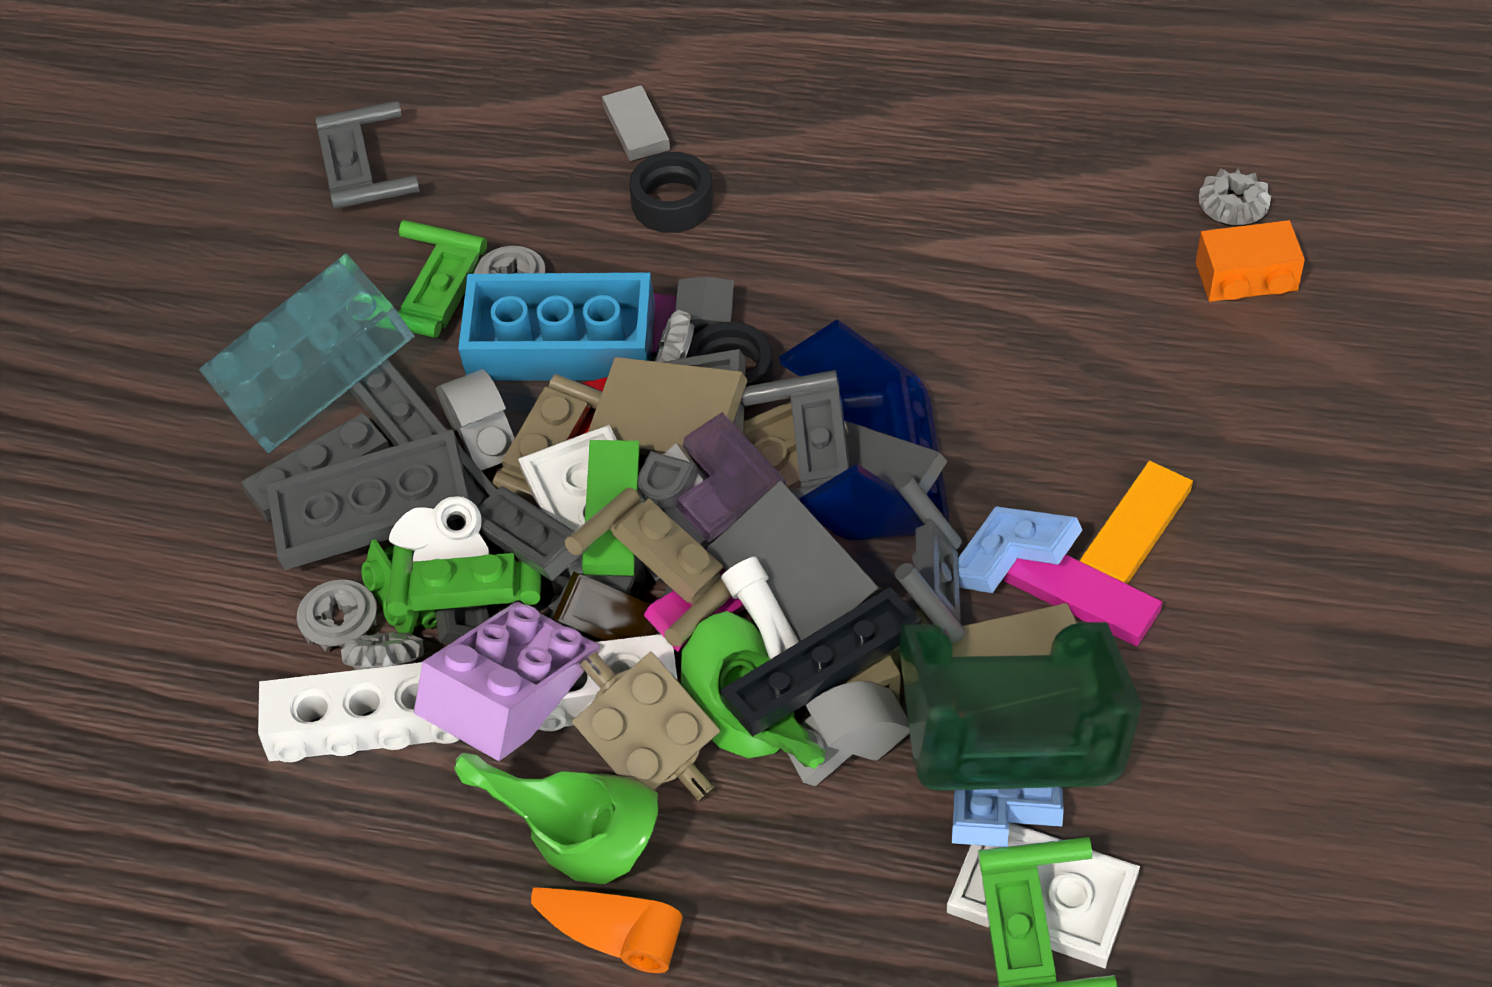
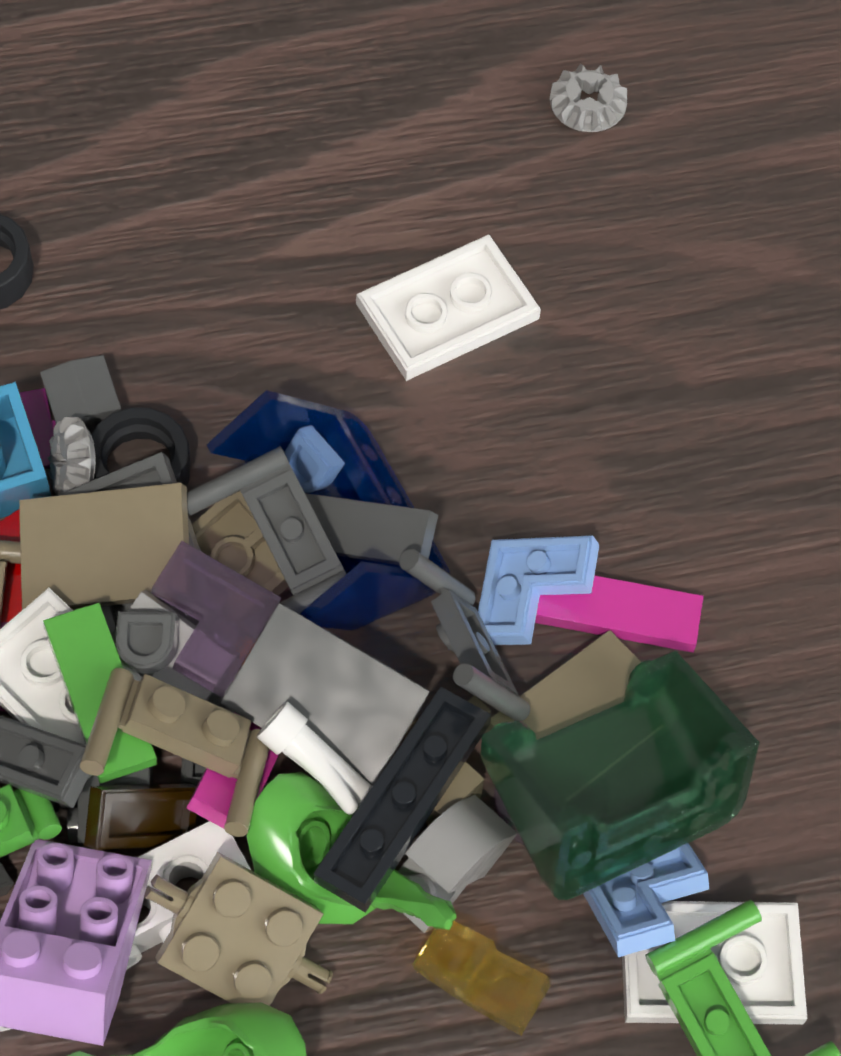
camera: 30 degrees left, 10 degrees up
(837, 832) = (482, 977): none -> clear yellow slope
(865, 399) = (312, 460): none -> medium blue tile
(1039, 323) = (447, 307): none -> white tile
(1137, 522) = (641, 512): light orange tile -> none
(1249, 261) = (636, 173): orange brick -> none

